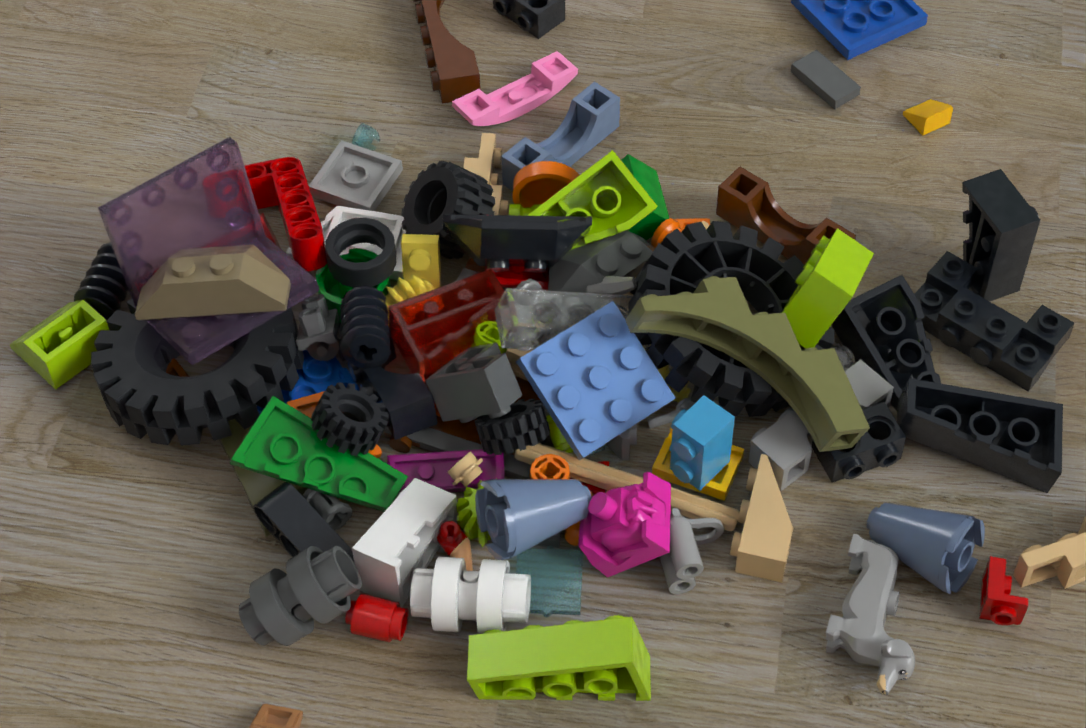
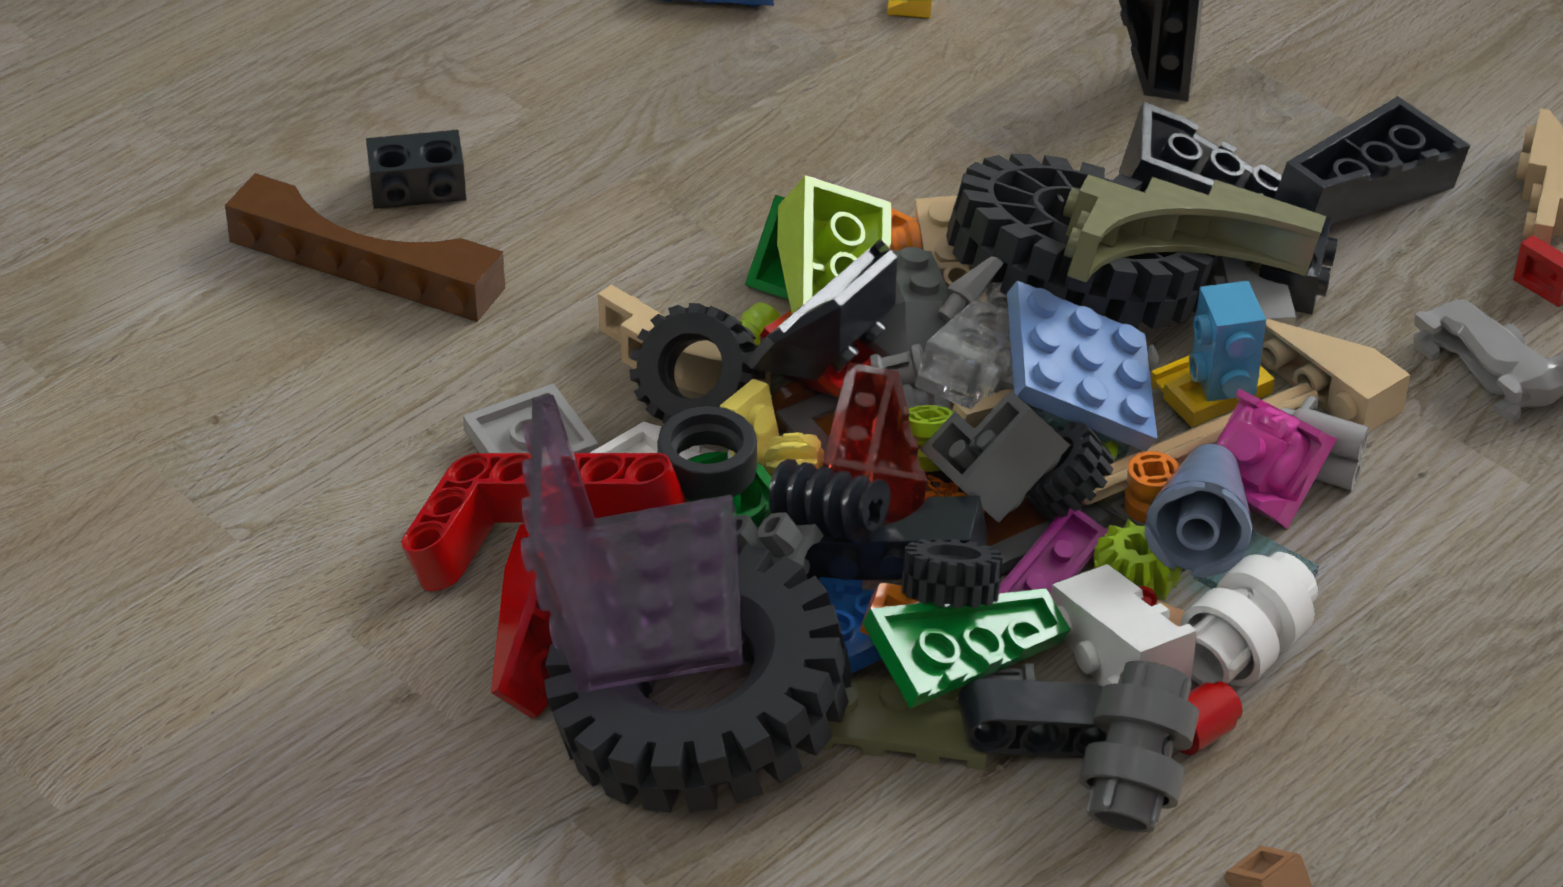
camera: 55 degrees left, 10 degrees down
(62, 342) = (520, 800): lime slope -> none
(104, 283) = (472, 719): black piece -> none
(214, 284) = (656, 575): dark tan wedge -> none
(365, 135) = (471, 397): clear light blue hinge -> none
(466, 470) = (1077, 540): tan plate -> none
(519, 97) = (547, 242): bright pink slope -> none
(540, 182) = (744, 277): orange piece -> none
(561, 661) = (1387, 594): lime wedge -> none
(588, 121) = (667, 236): sand blue arch -> none
(749, 202) = (916, 167): reddish brown arch -> none
(825, 79) = (783, 33): dark grey tile -> none
(826, 286) = (1121, 141): lime wedge -> none
(929, 541) = (1468, 266): sand blue cone -> none
(986, 331) = (1238, 109): black bracket -> none

